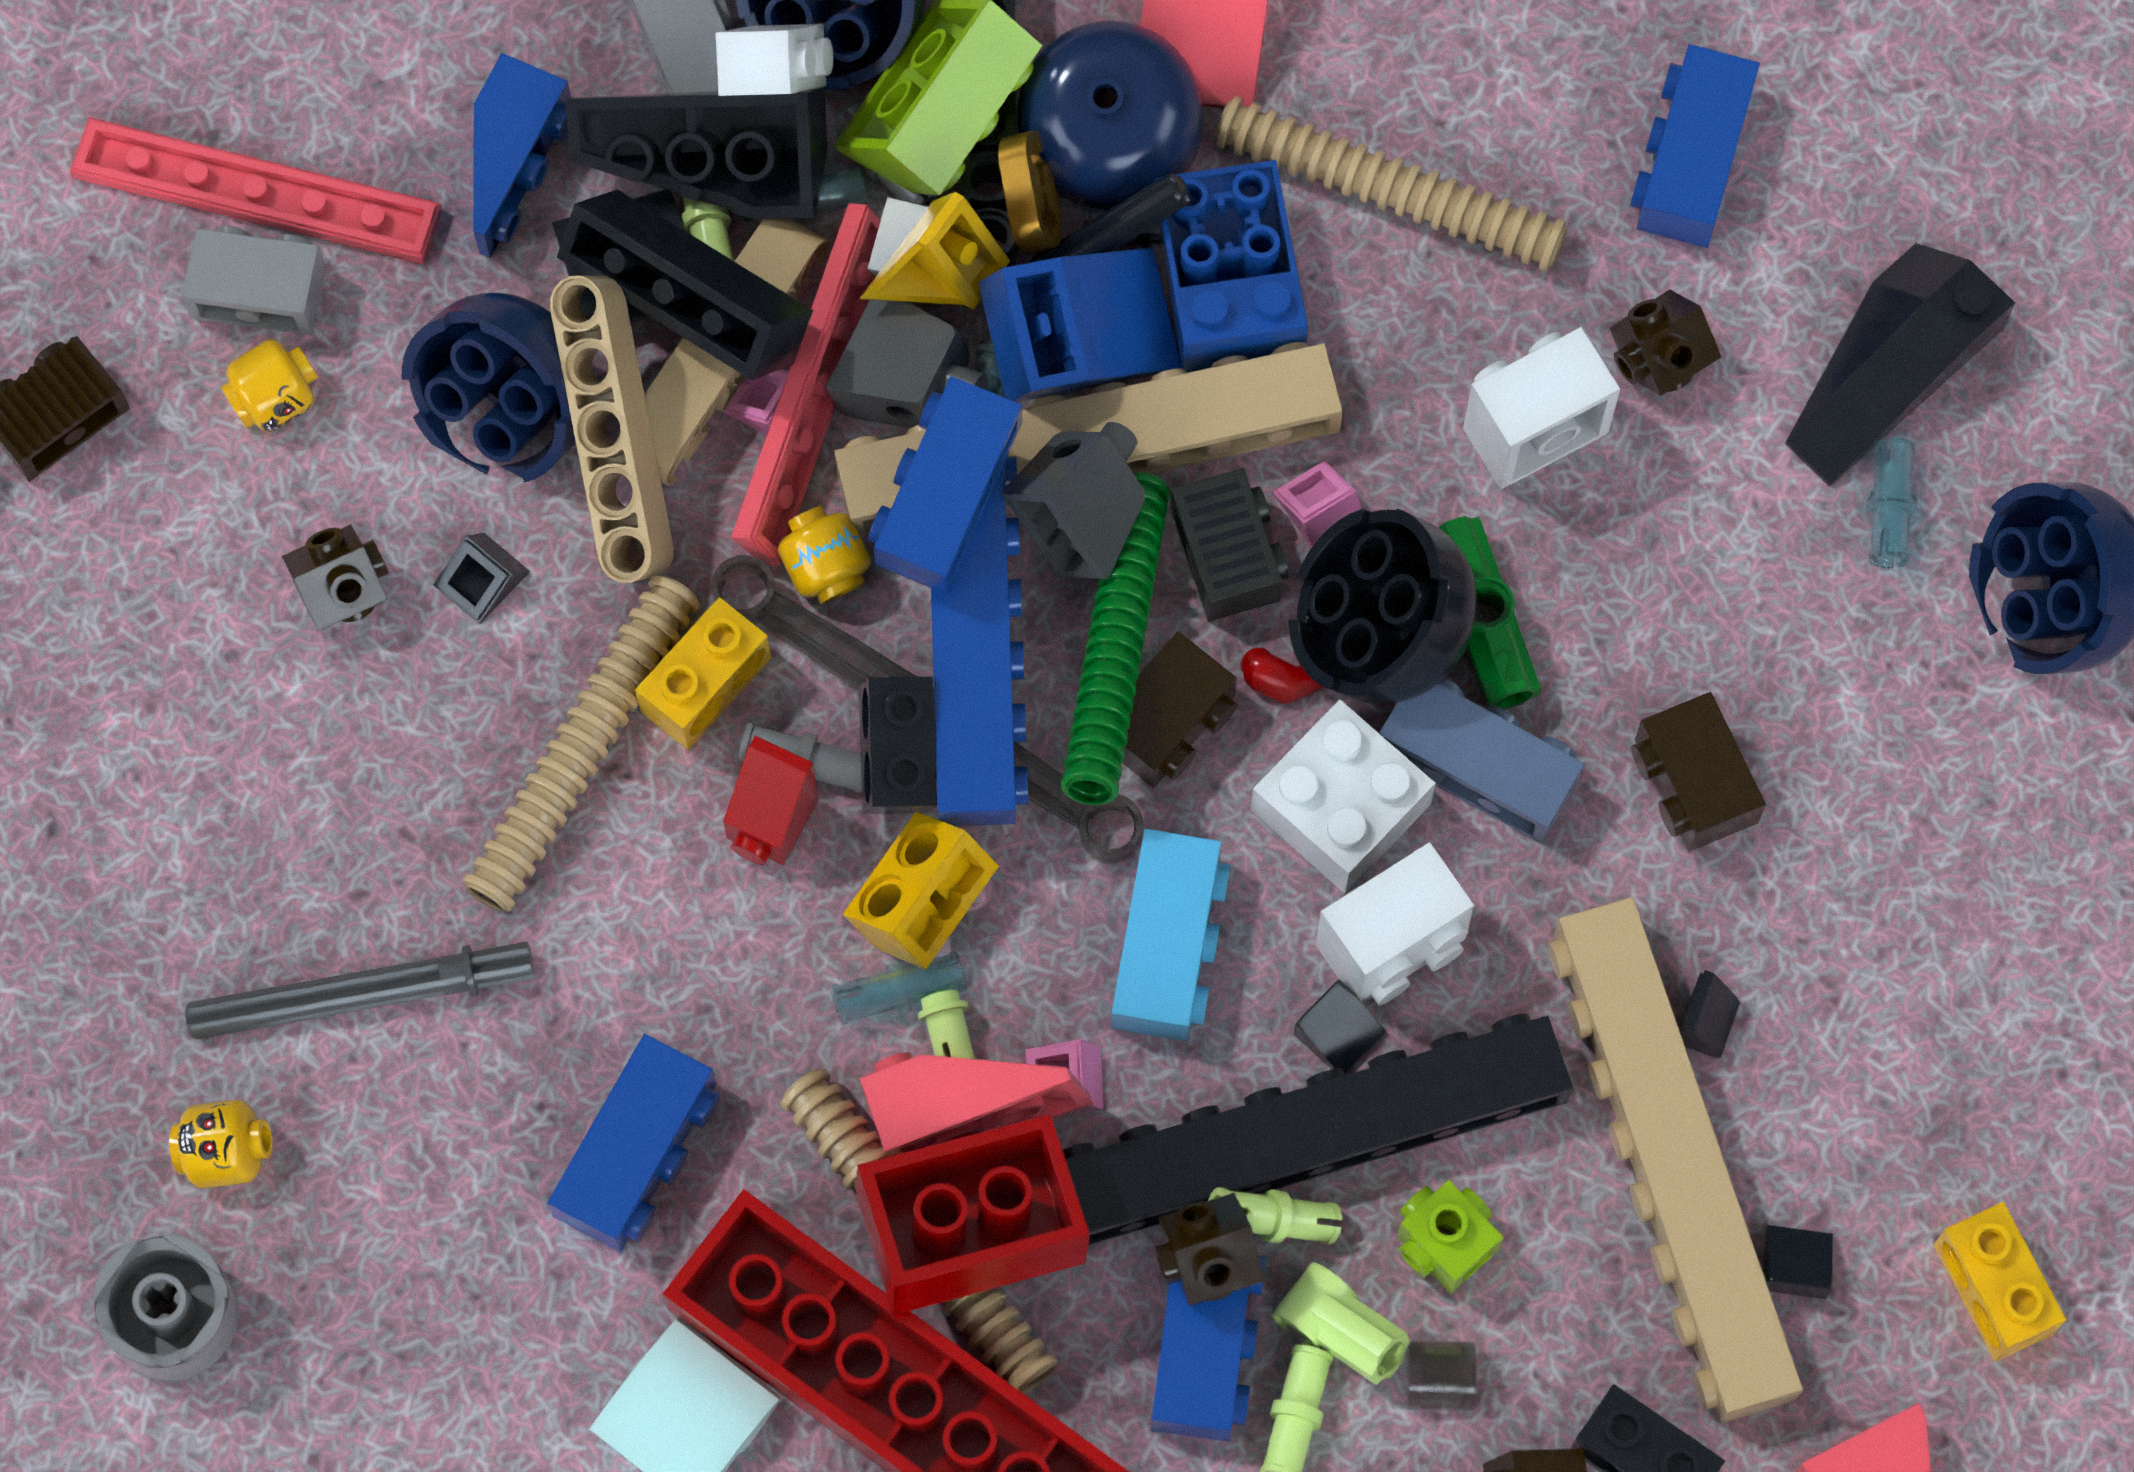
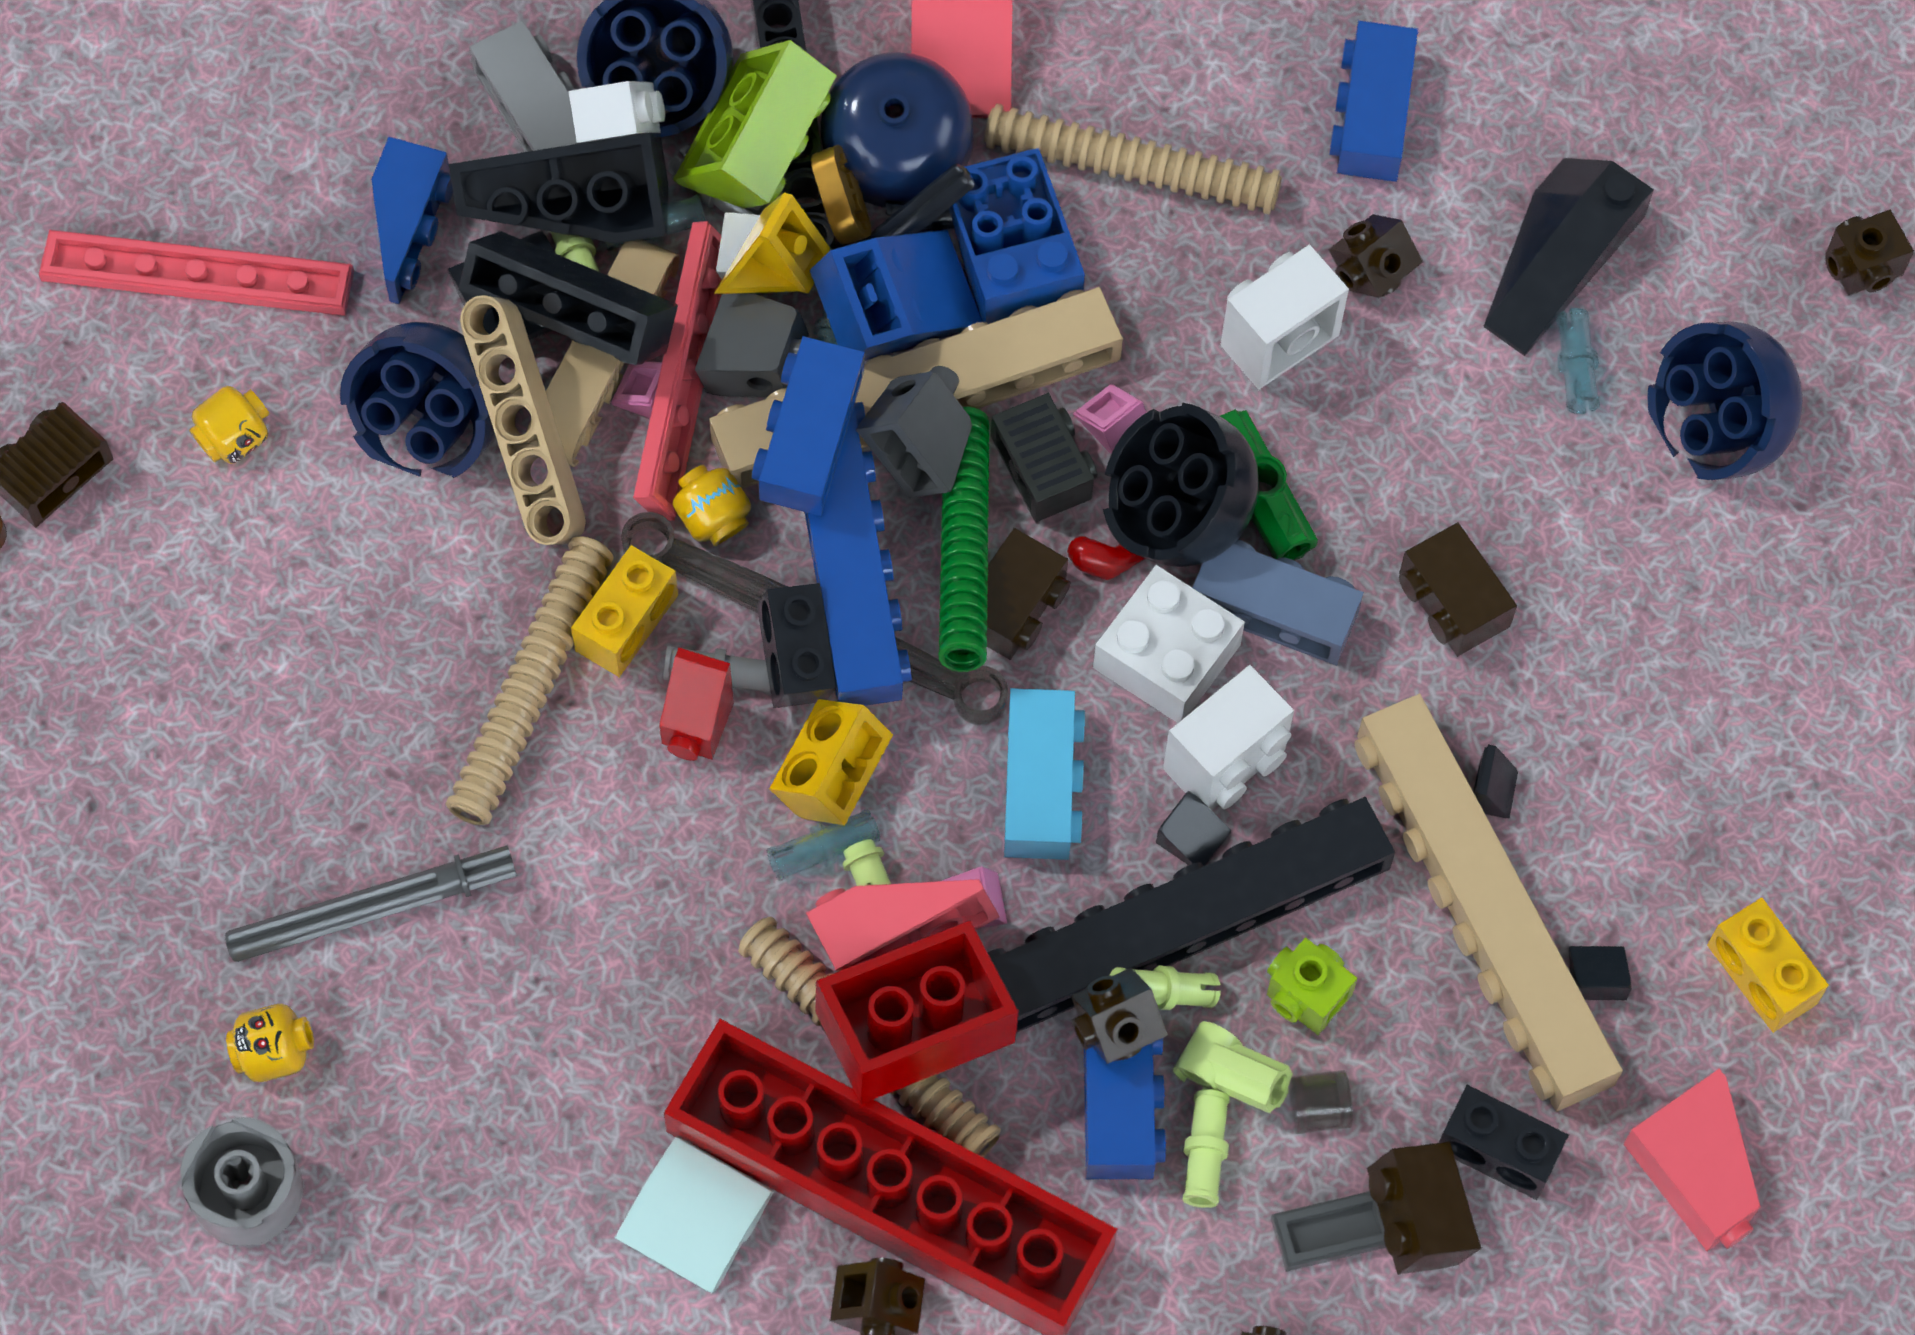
camera: 10 degrees left, 5 degrees down
(254, 280) = (205, 342): light grey brick -> none
(337, 576) = (307, 569): brick -> none
(480, 576) = (425, 558): black slope -> none
(635, 1144) = (621, 998): blue brick -> none

